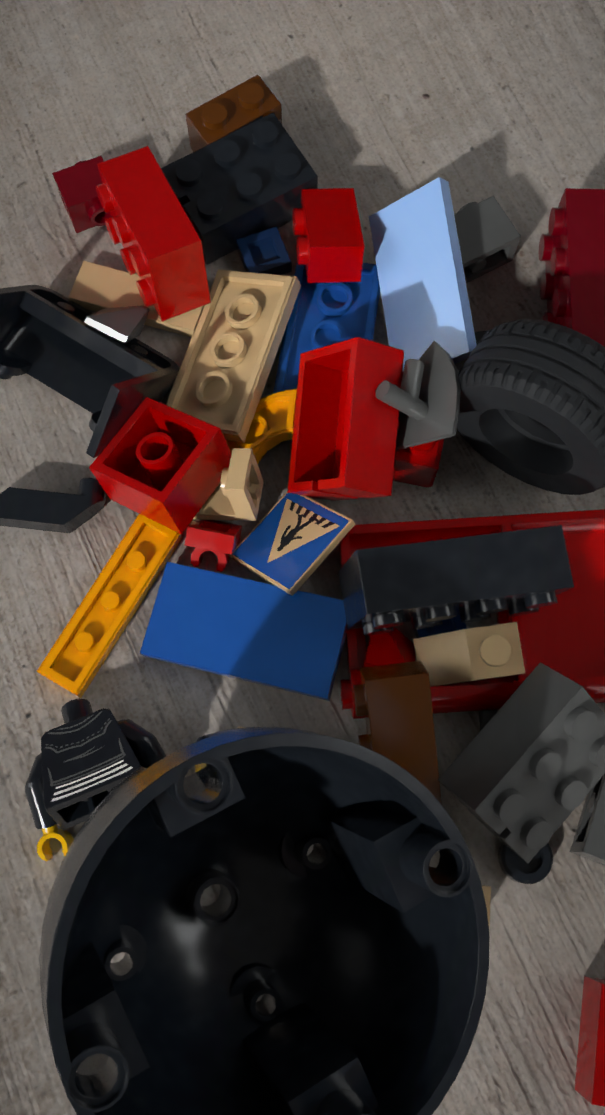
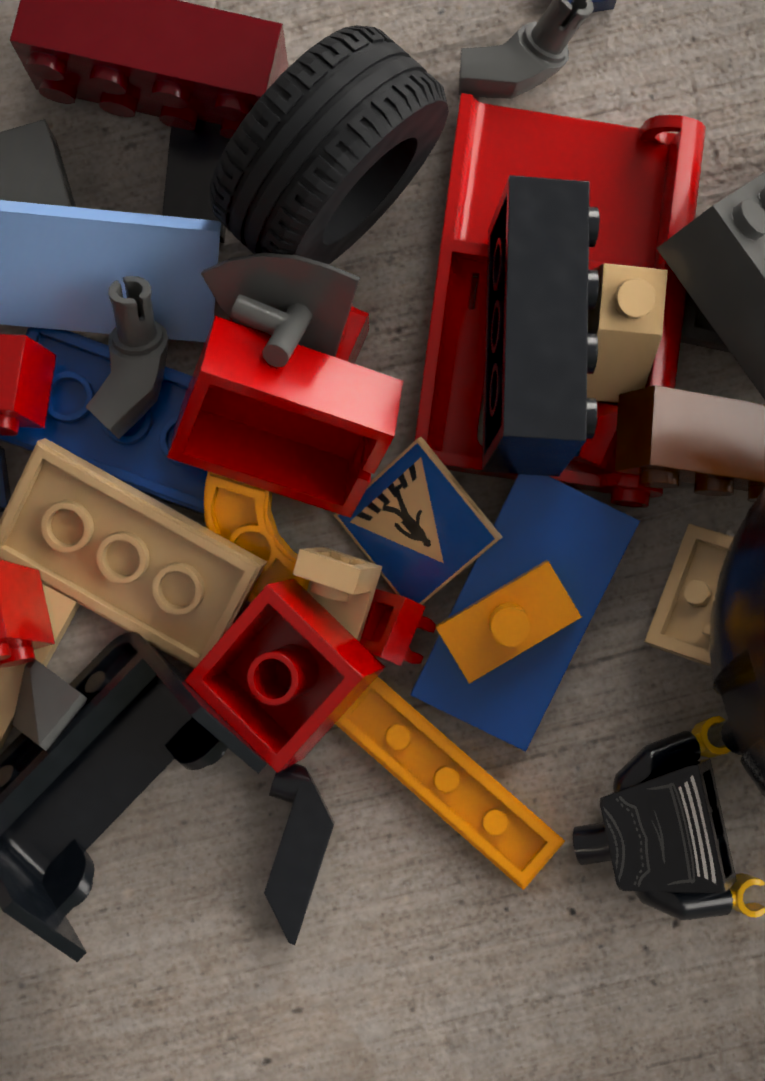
camera: 80 degrees left, 10 degrees up
(231, 615) = (508, 621): none -> light orange tile
(372, 323) = (136, 359): none -> dark grey arm

